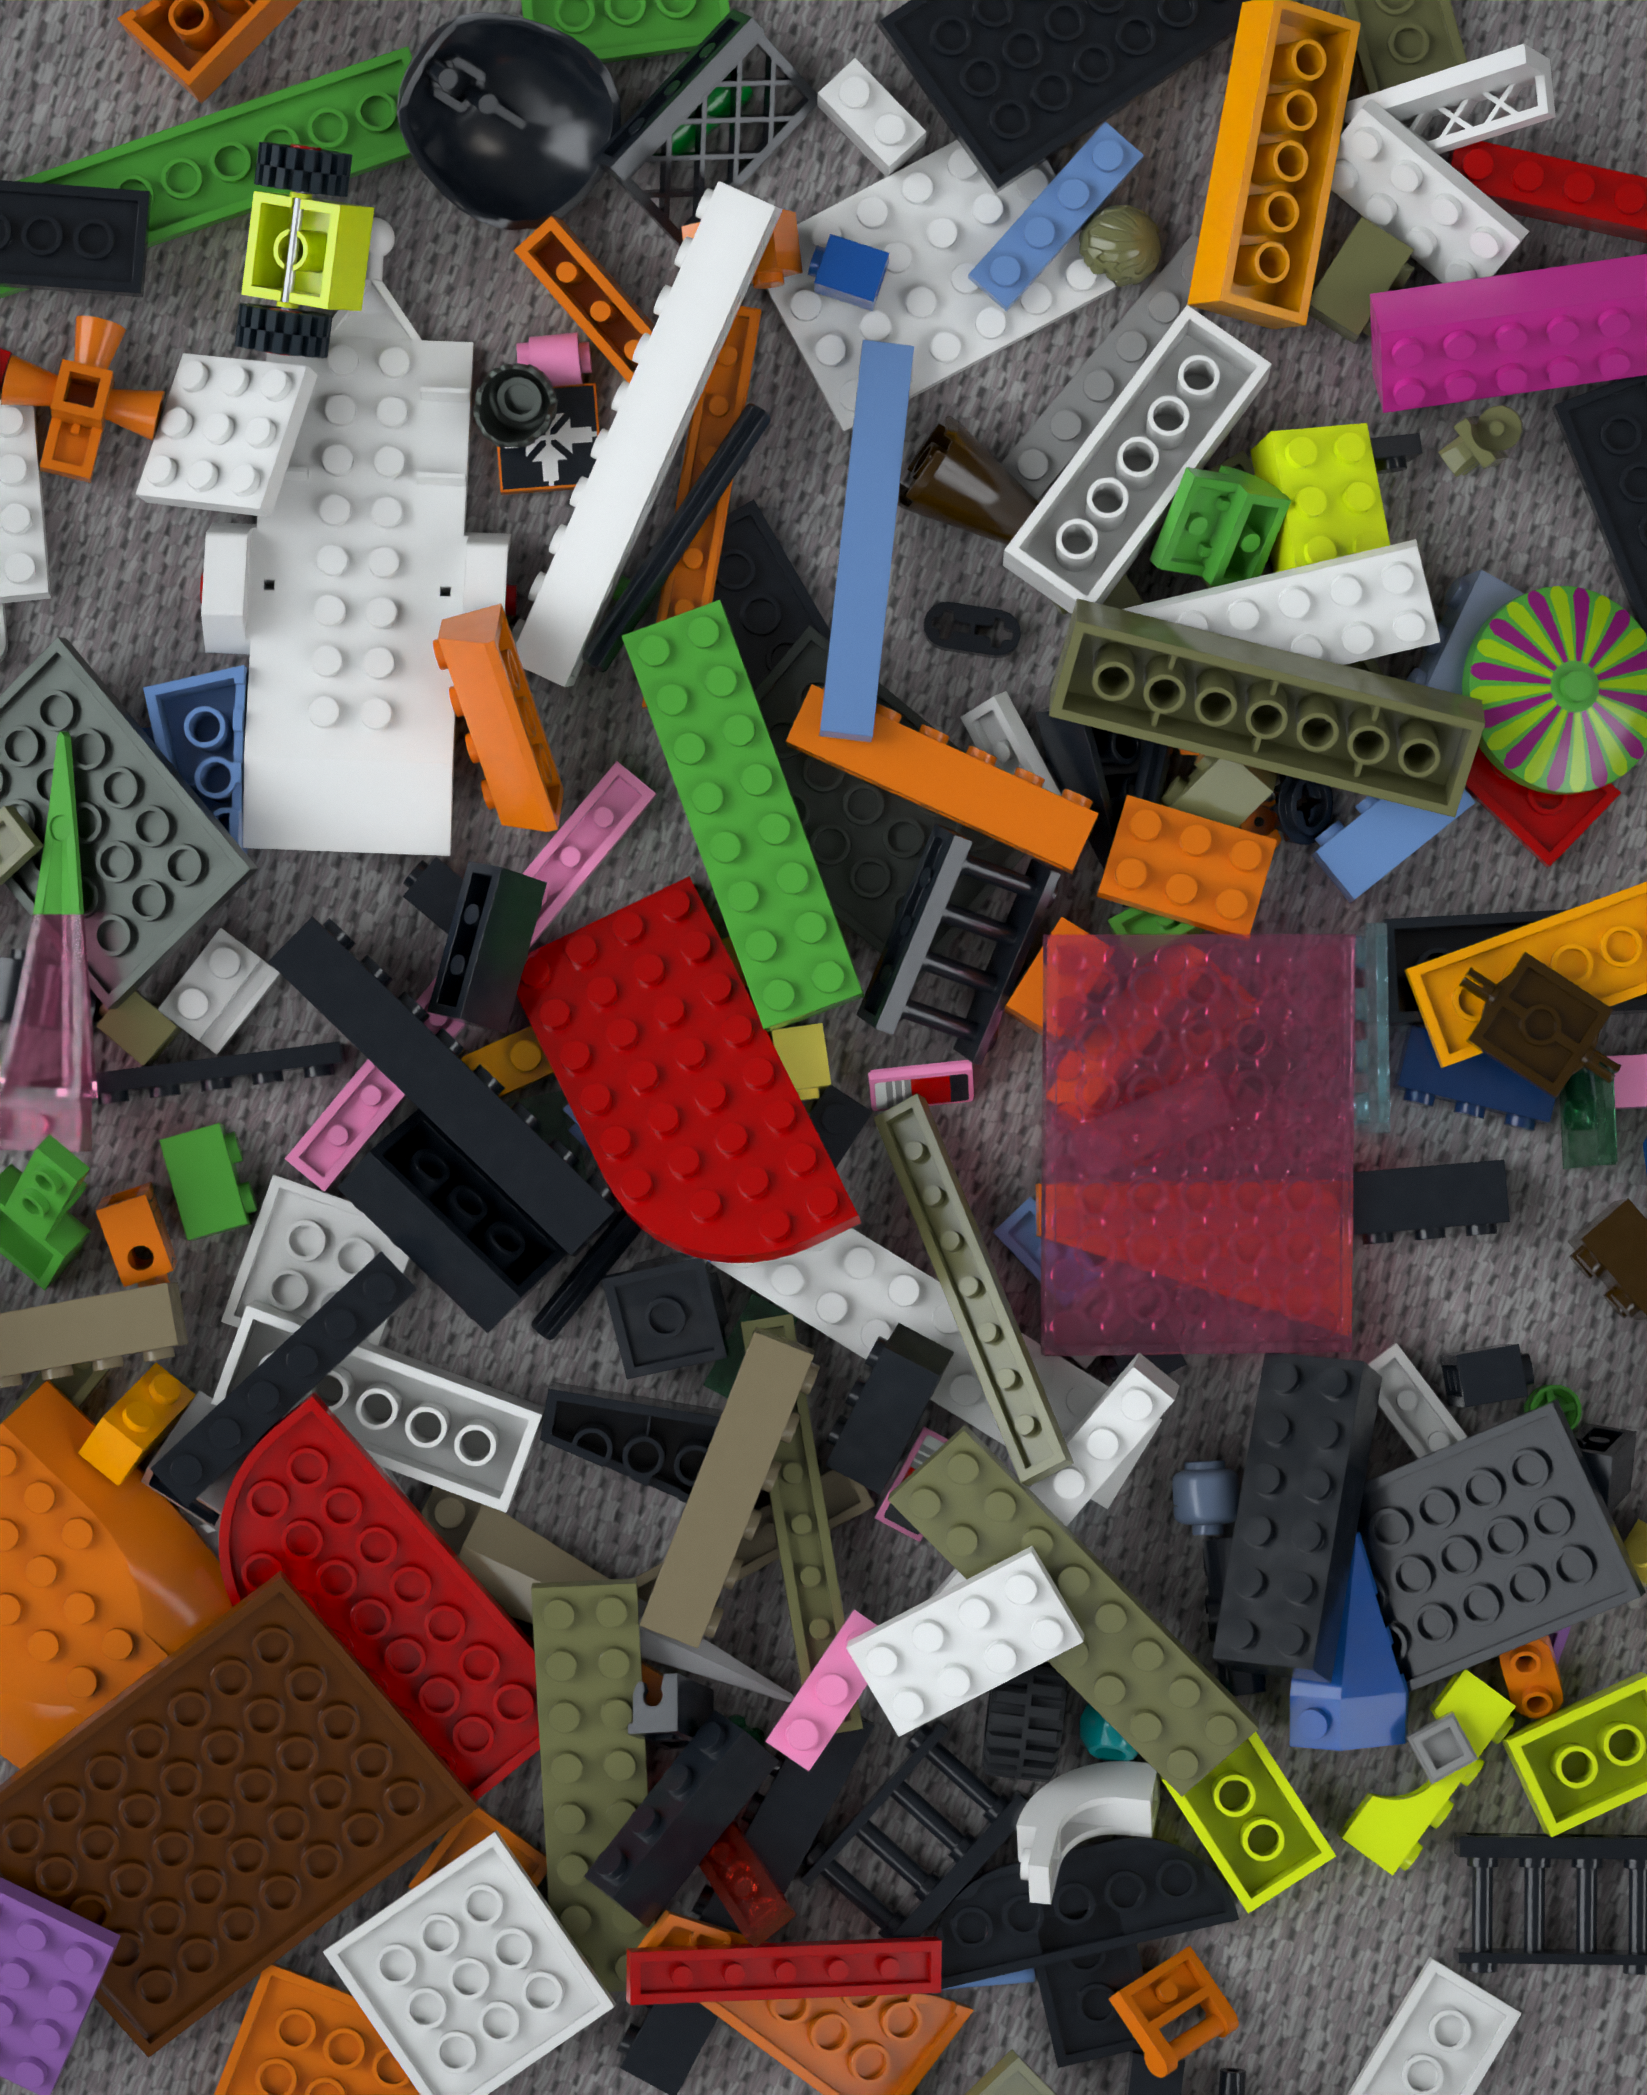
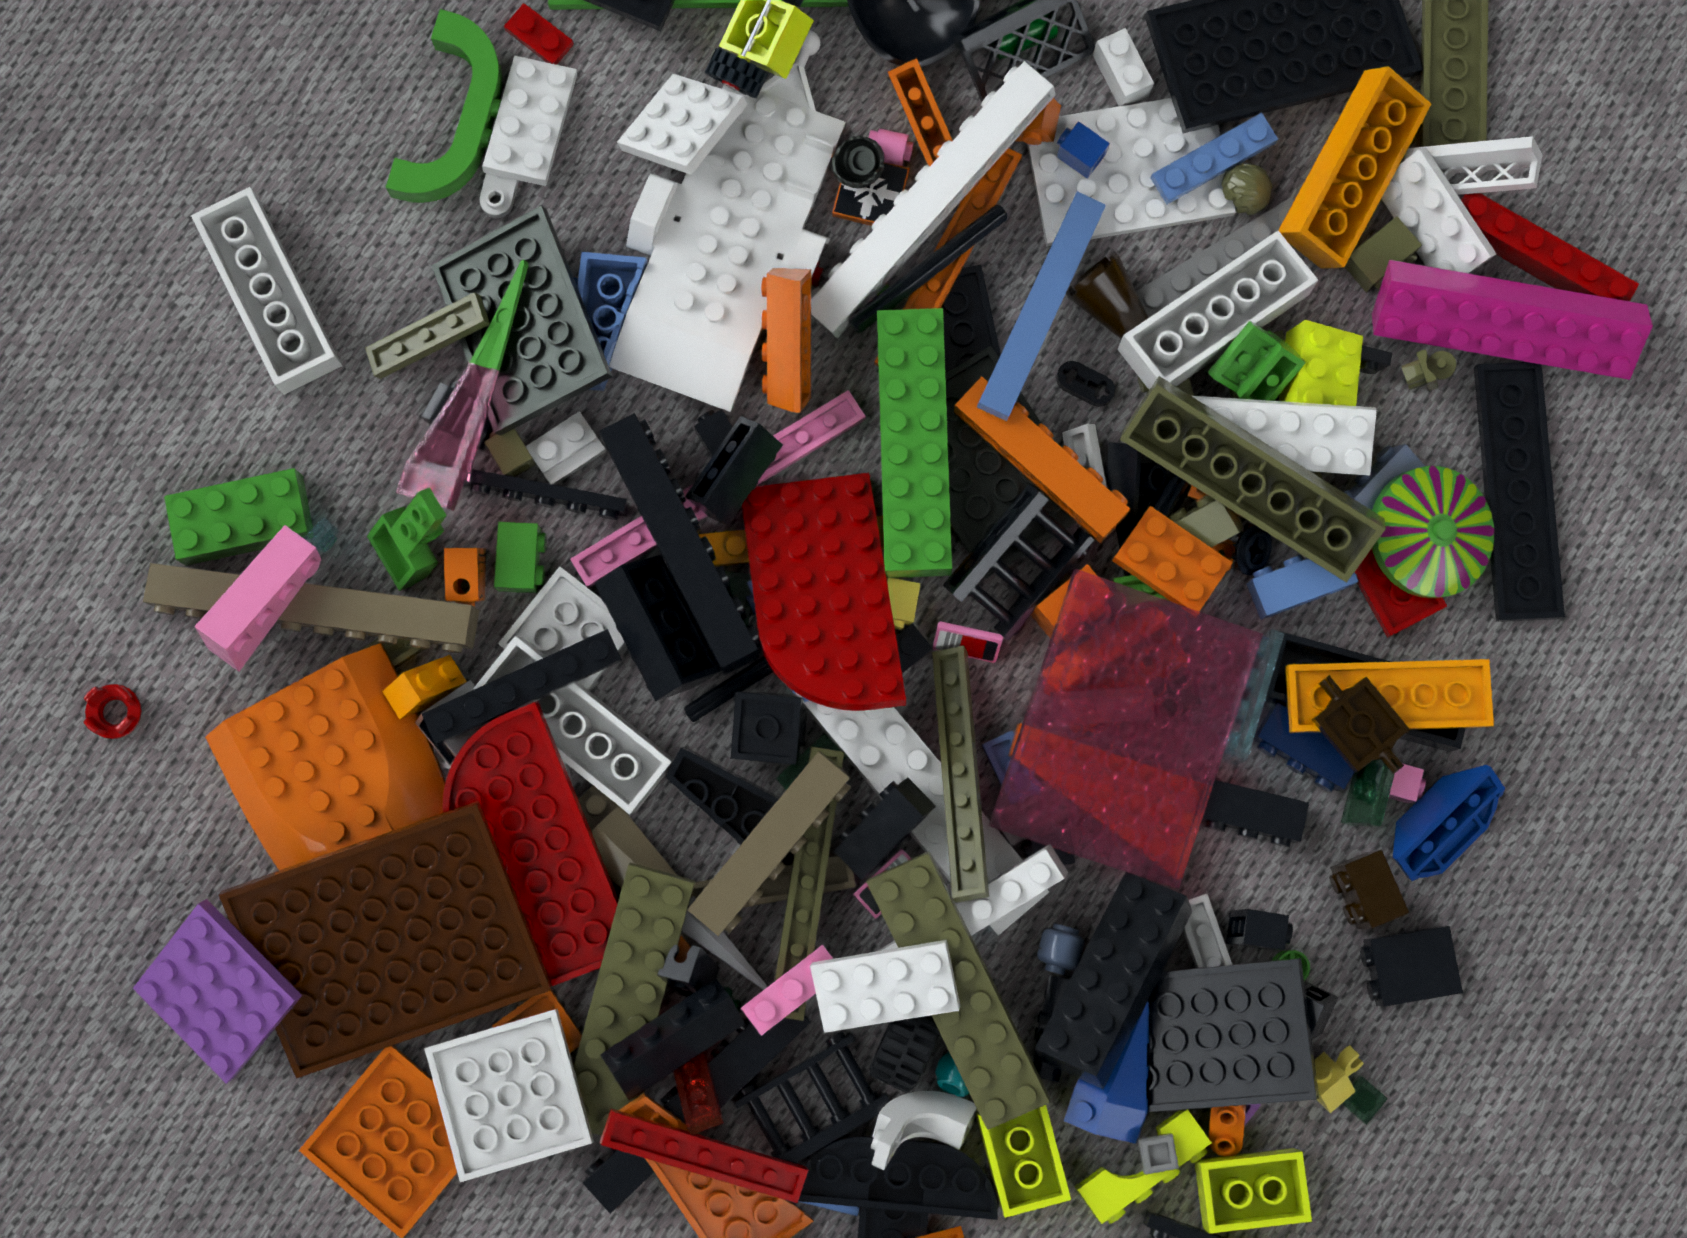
camera: 15 degrees right, 5 degrees down
(82, 399) = (604, 78): orange brick -> none

